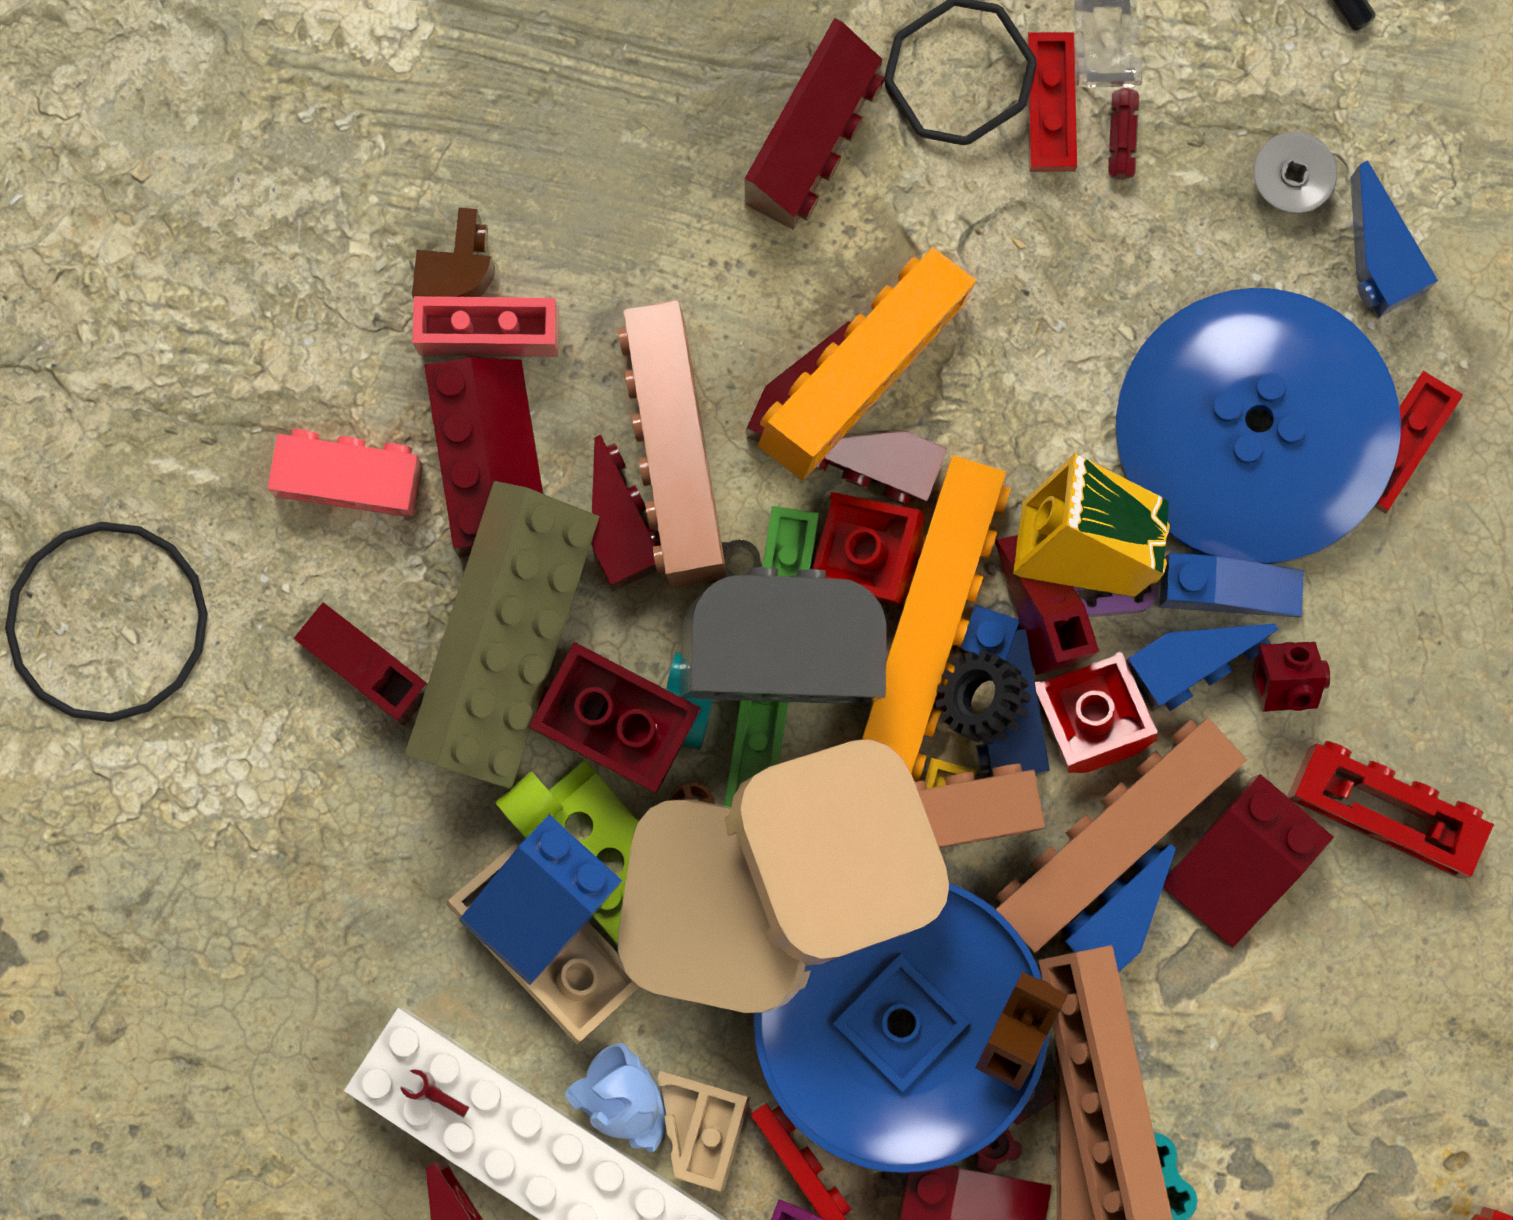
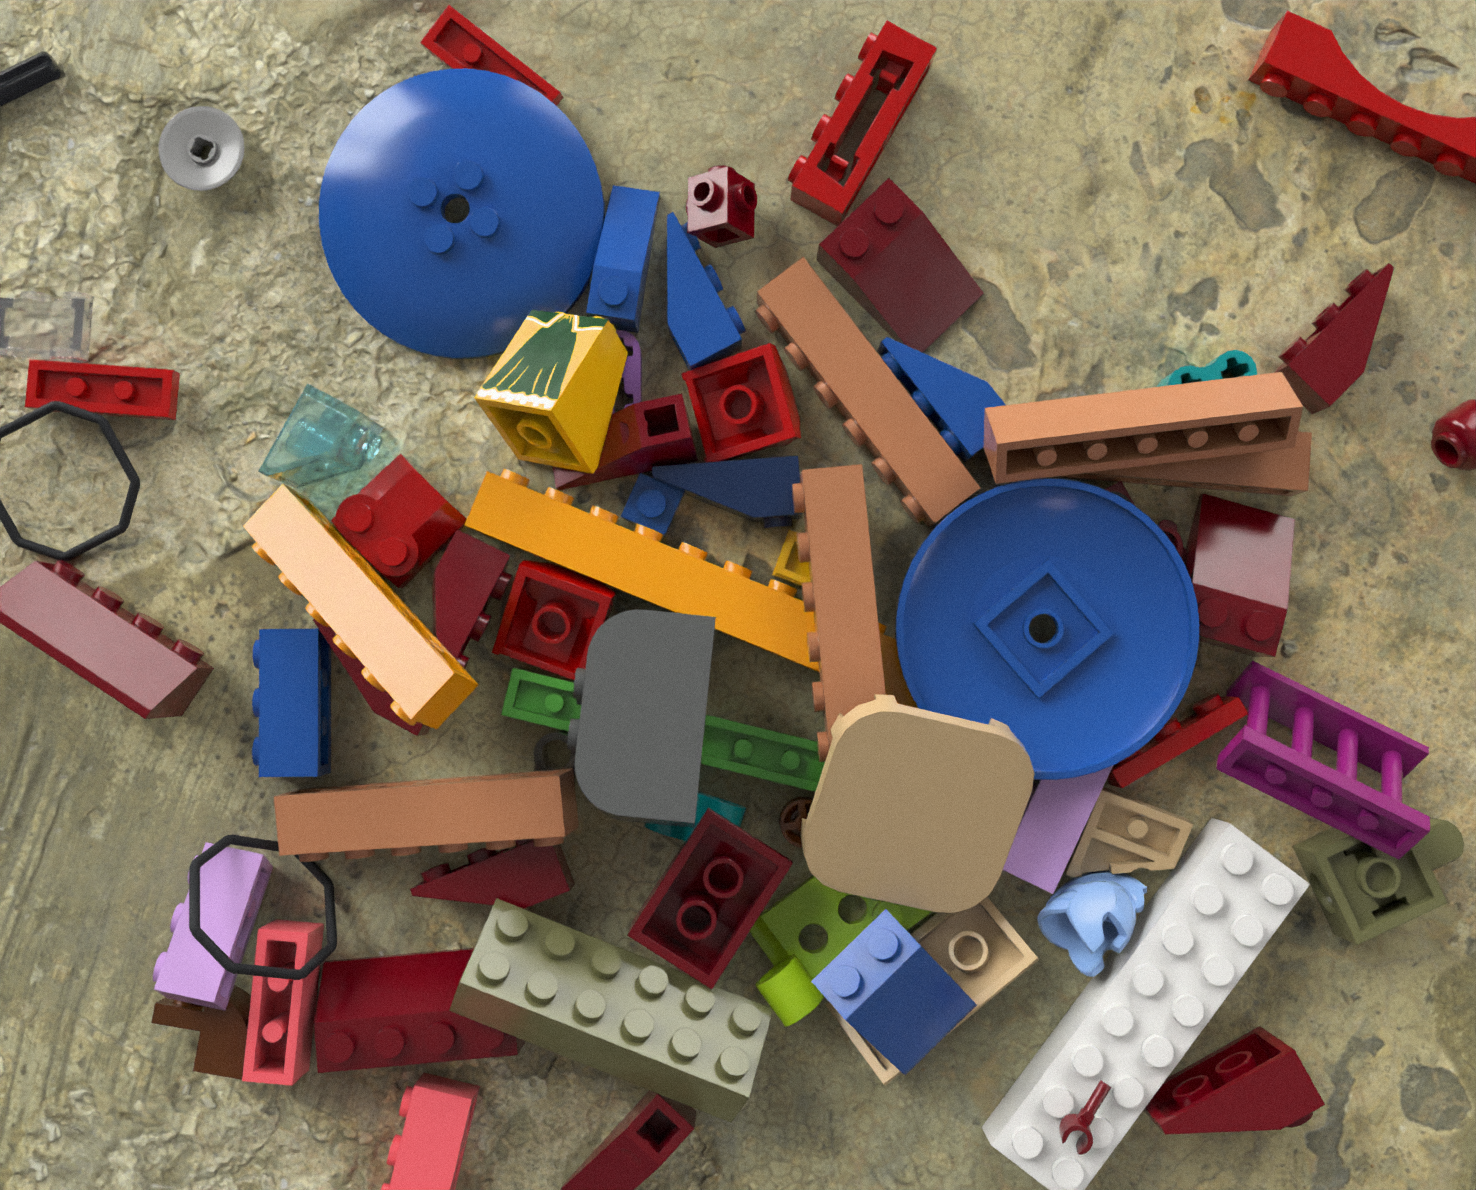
camera: 85 degrees left, 5 degrees up
(536, 267) = (256, 970): none -> black piece
(553, 255) = (229, 903): none -> lavender brick
(708, 1047) = (1052, 827): none -> lavender brick
(767, 308) = (292, 703): none -> blue brick
(839, 850) = (877, 681): tan tile -> none
(950, 392) = (398, 521): none -> red slope
(964, 683) = (708, 538): black tyre -> none
(1020, 313) = (321, 441): none -> clear light blue slope
(1021, 1030) = (1073, 508): reddish brown brick -> none
(1123, 133) = (144, 320): dark red axle -> none
(1386, 255) = (293, 67): blue slope -> none

